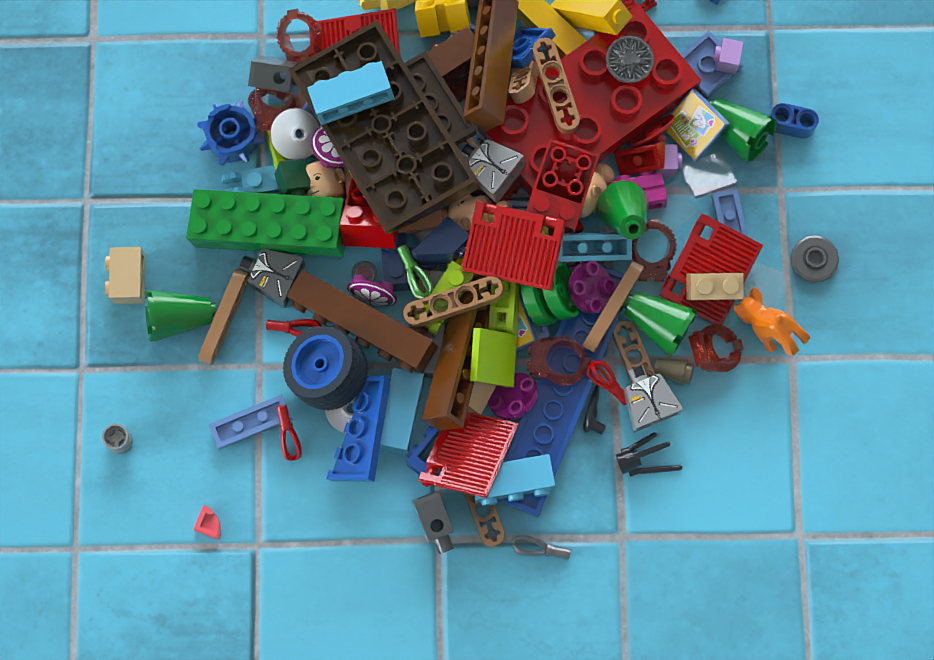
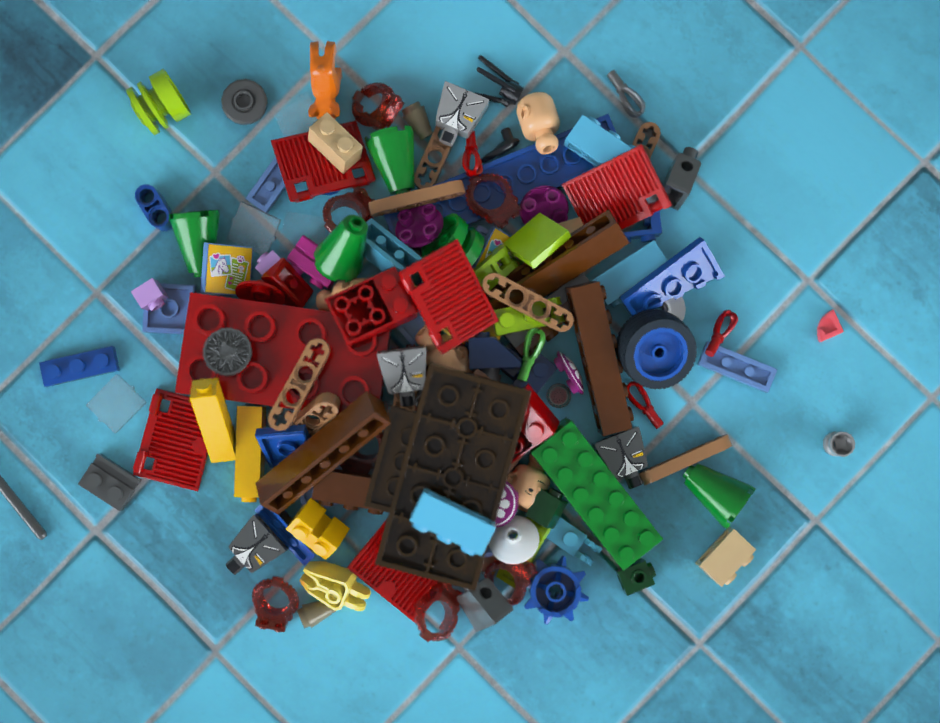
camera: 135 degrees left, 10 degrees up
(179, 199) = (636, 576): none -> dark green brick
(583, 457) = (539, 121): none -> light nougat piece
(871, 192) = (158, 102): none -> lime wheel

